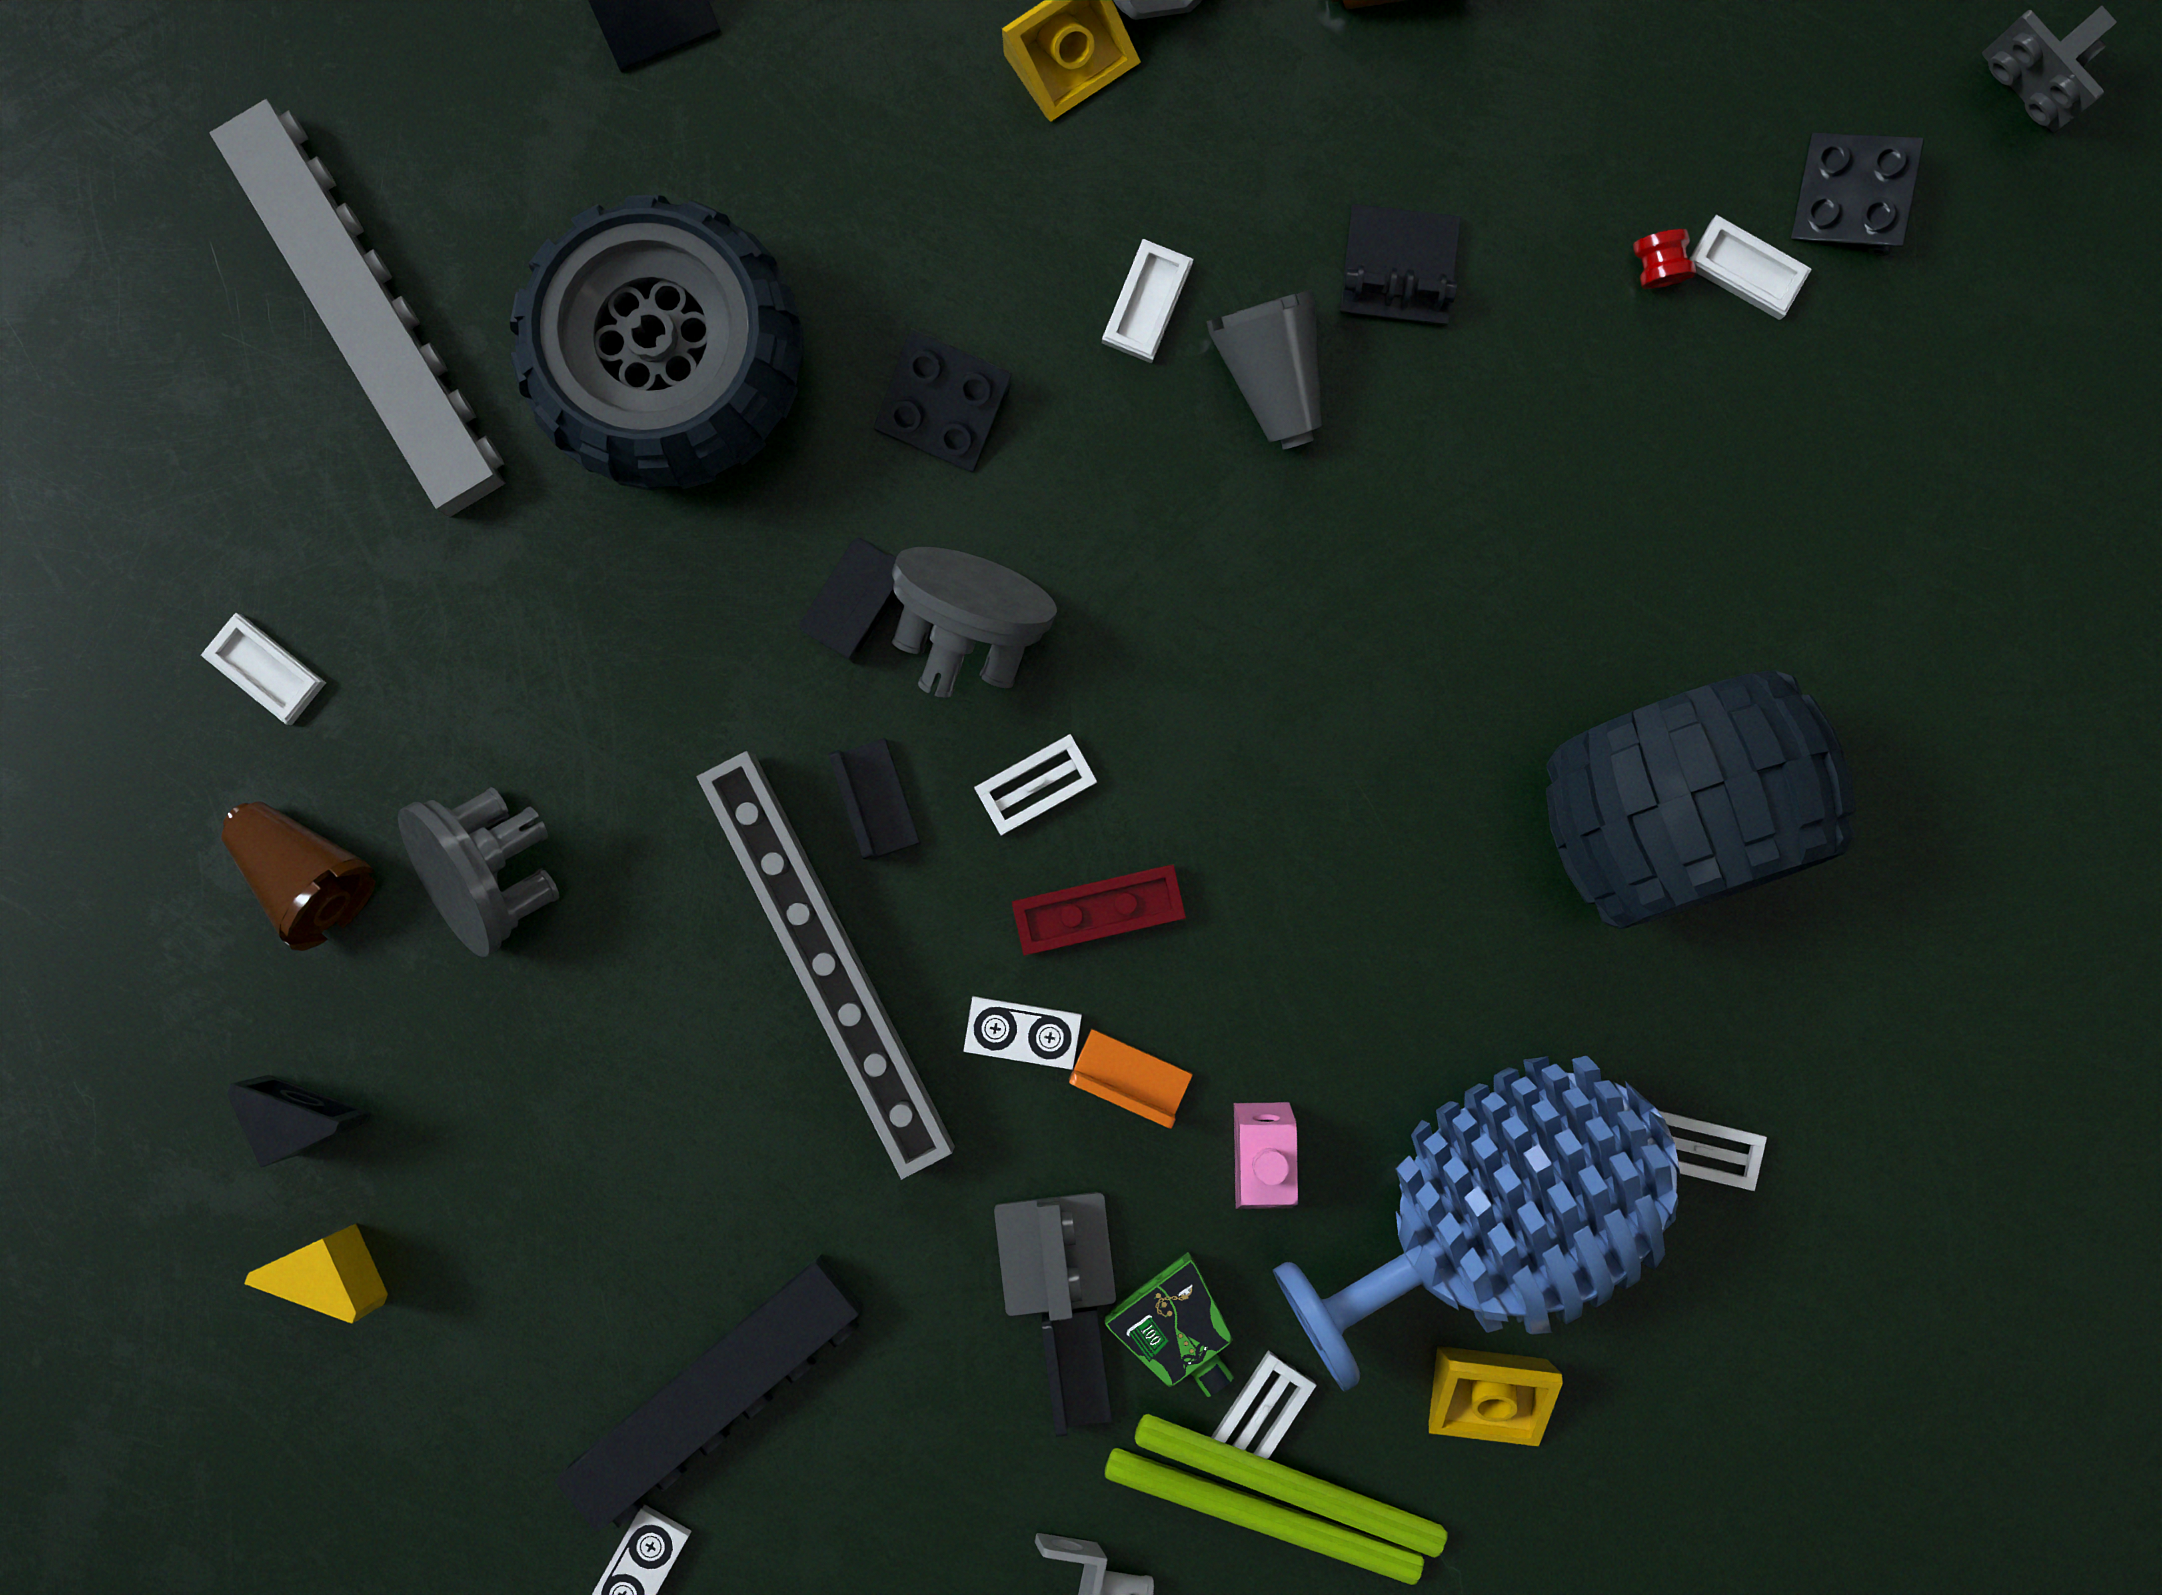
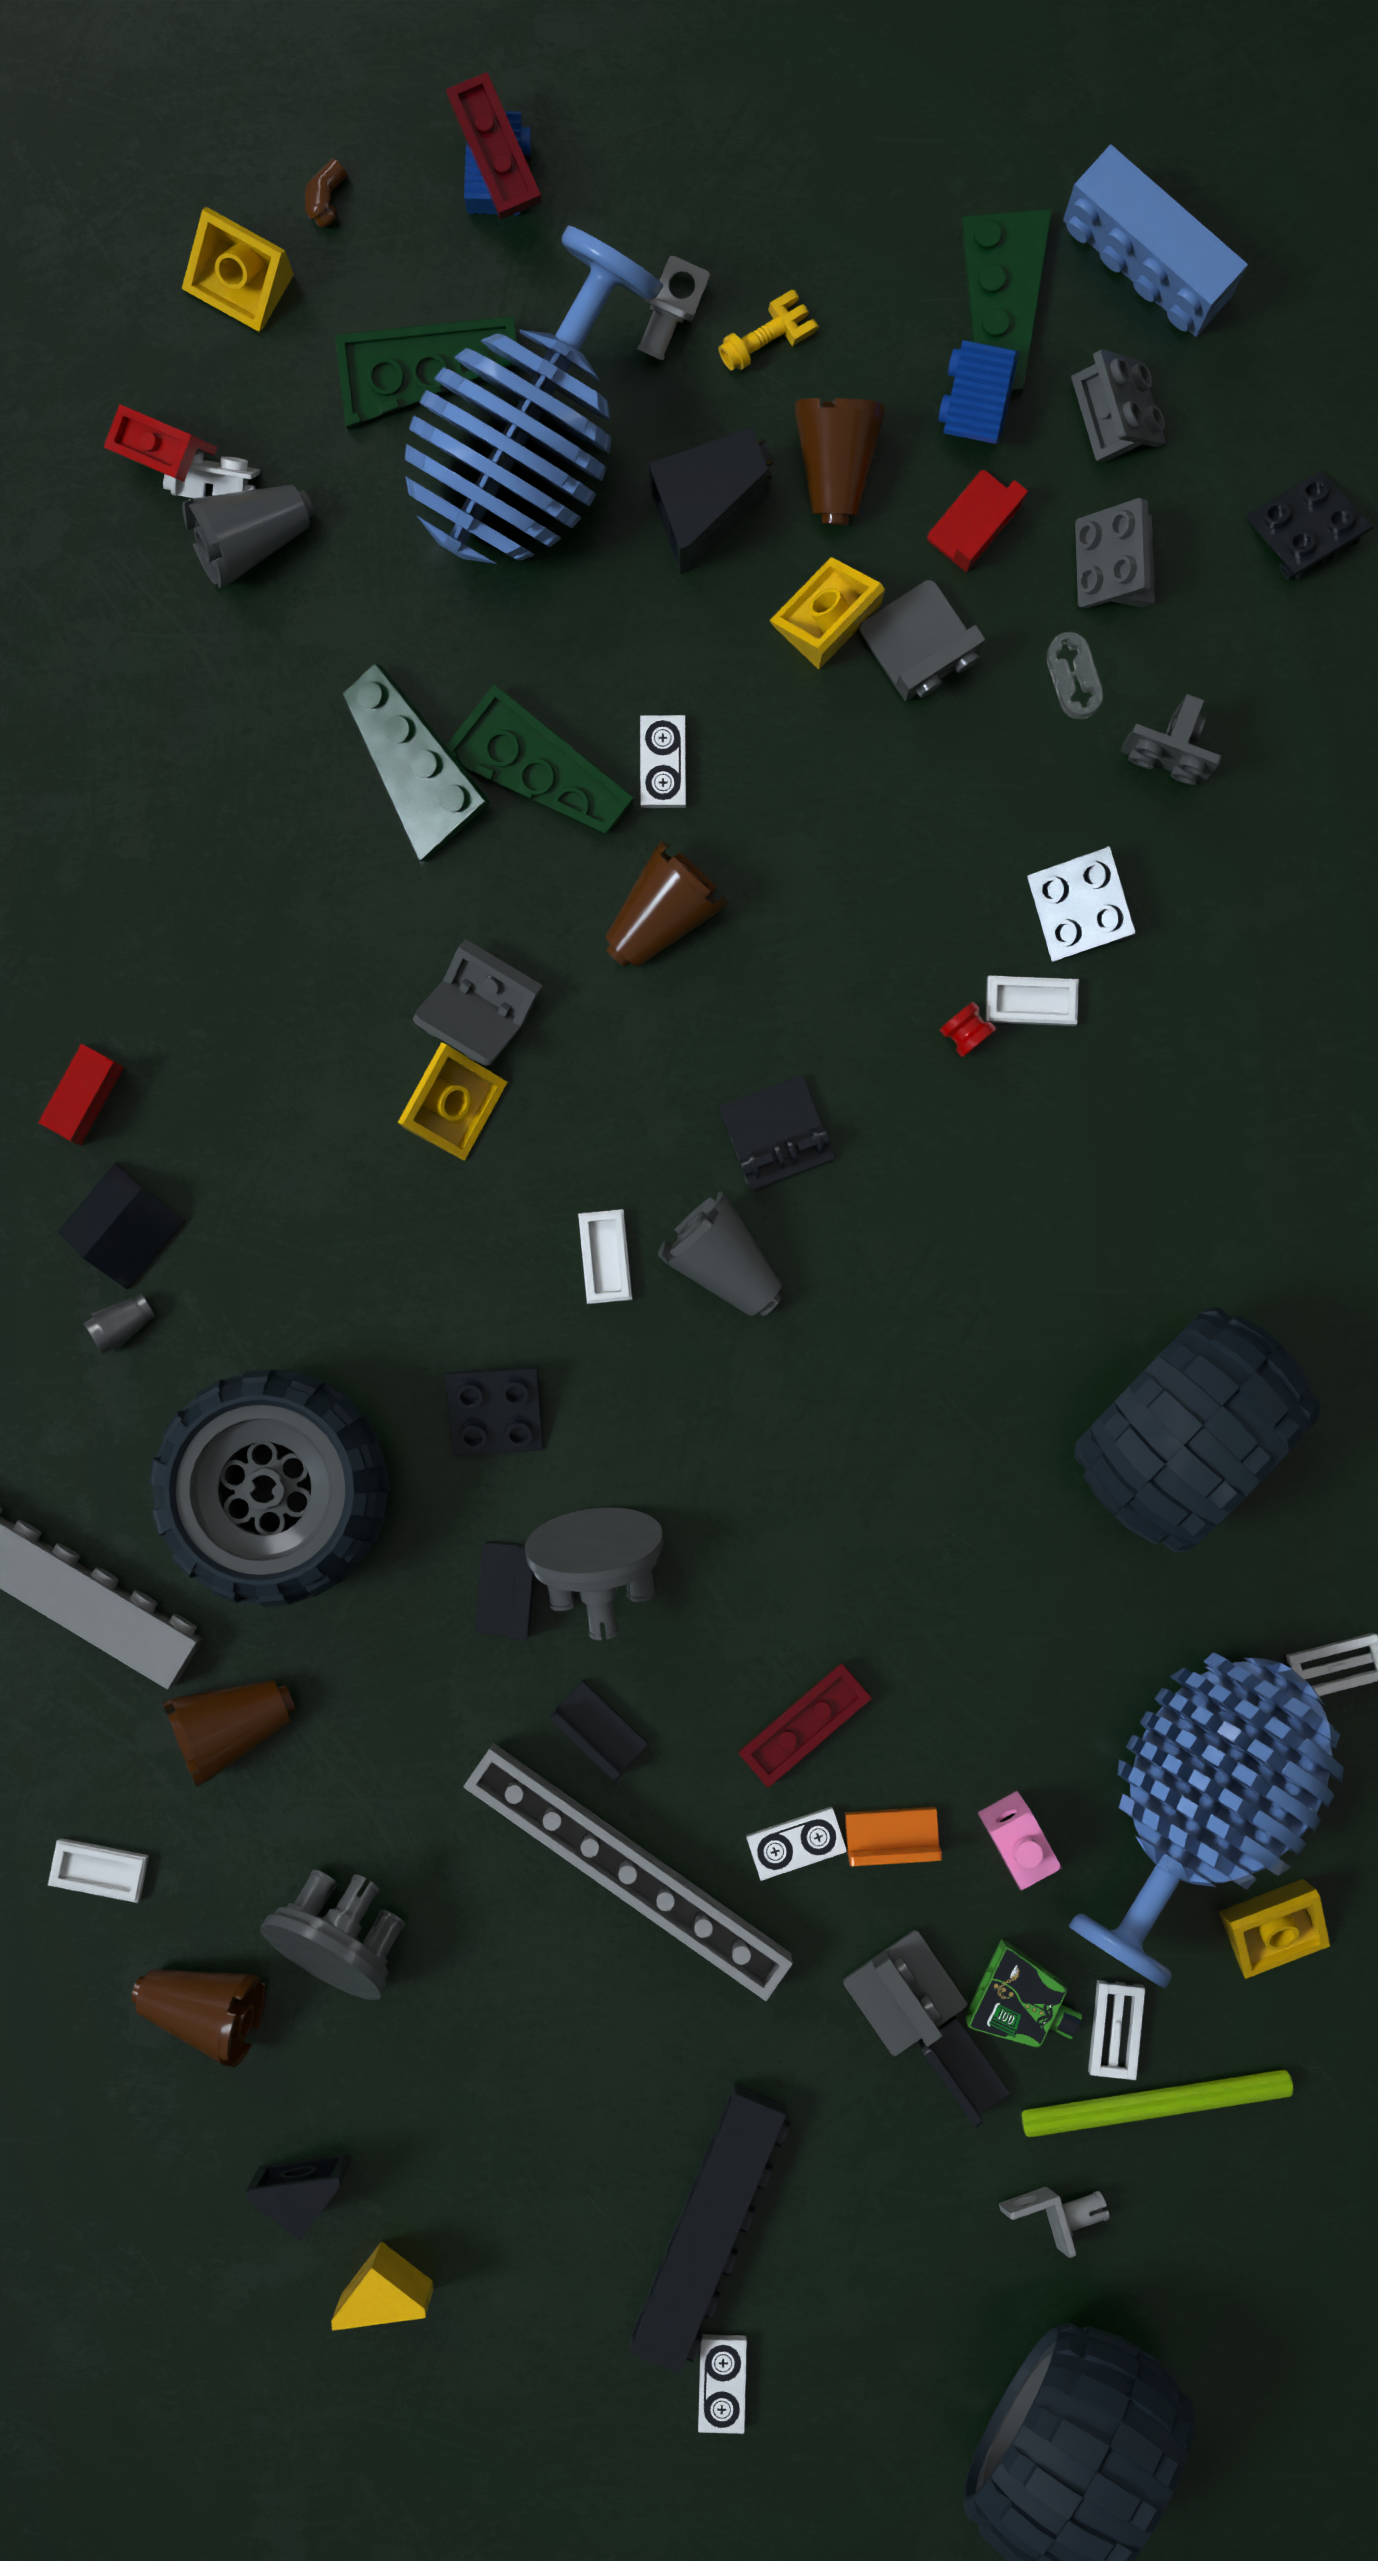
camera: 25 degrees left, 0 degrees up
(478, 581) = (226, 1724): none -> reddish brown cone
(591, 98) = (118, 1323): none -> flat silver cone
(995, 807) = (689, 1688): white tile -> none
(1290, 1485) = (1164, 2071): lime axle -> none

